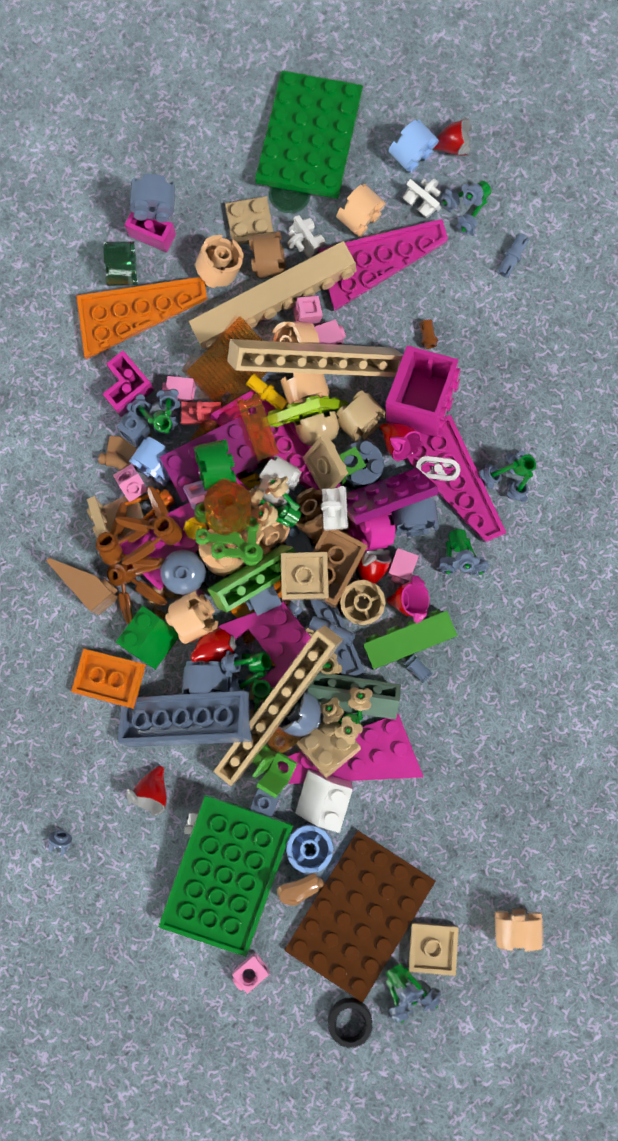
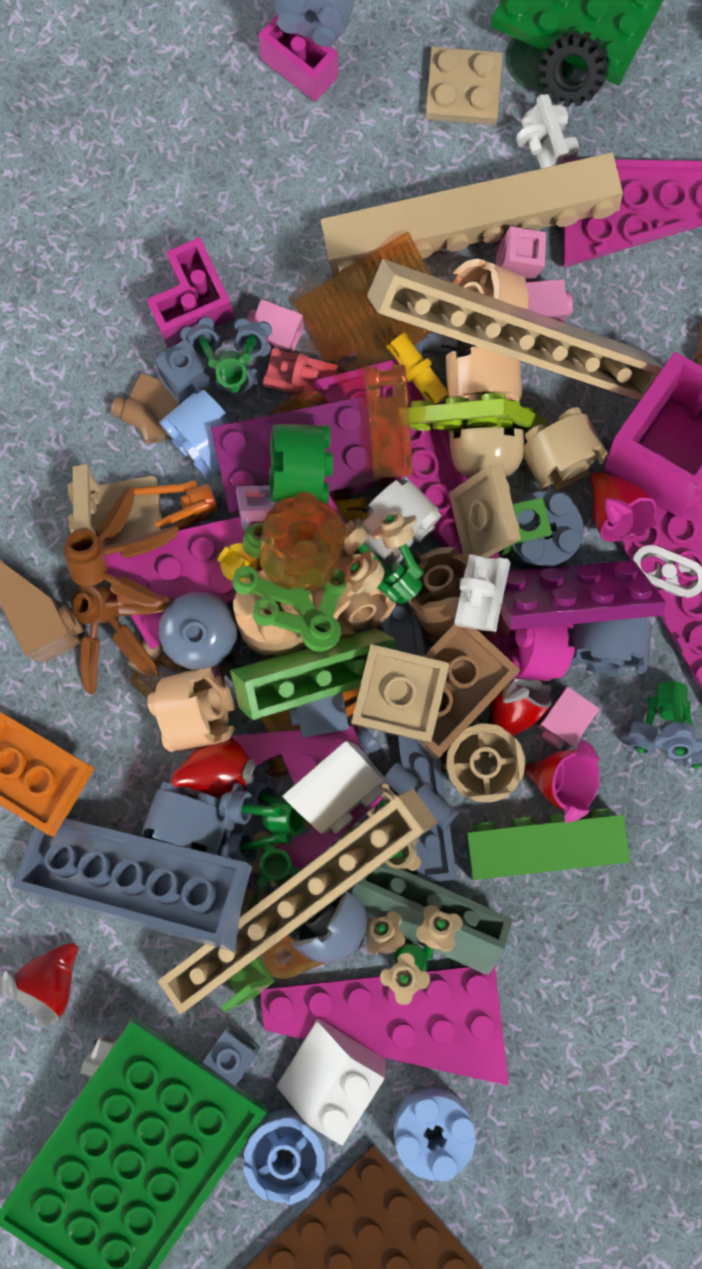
camera: 10 degrees right, 0 degrees up
(120, 263) = (234, 96): clear green brick -> none
(123, 313) = (218, 180): orange wing -> none
(130, 482) = (152, 458): bright pink brick -> none
(148, 637) = (111, 723): green slope -> none
(164, 528) = (185, 547): dark orange plant -> none
(219, 261) = (397, 134): light nougat brick -> none
(268, 254) = (479, 144): medium nougat brick -> none
(276, 780) = (259, 1022): bright green bracket -> none
(283, 637) = (336, 788): none -> white slope
(297, 891) = (249, 1225): medium nougat arm -> none
(314, 185) = (596, 64): none -> black tyre
(326, 749) = (356, 995): tan plate -> none
(360, 209) = (653, 111): light nougat brick -> none
(377, 820) = (445, 1155): none -> light blue brick
(418, 668) = (547, 897): sand blue pin -> none

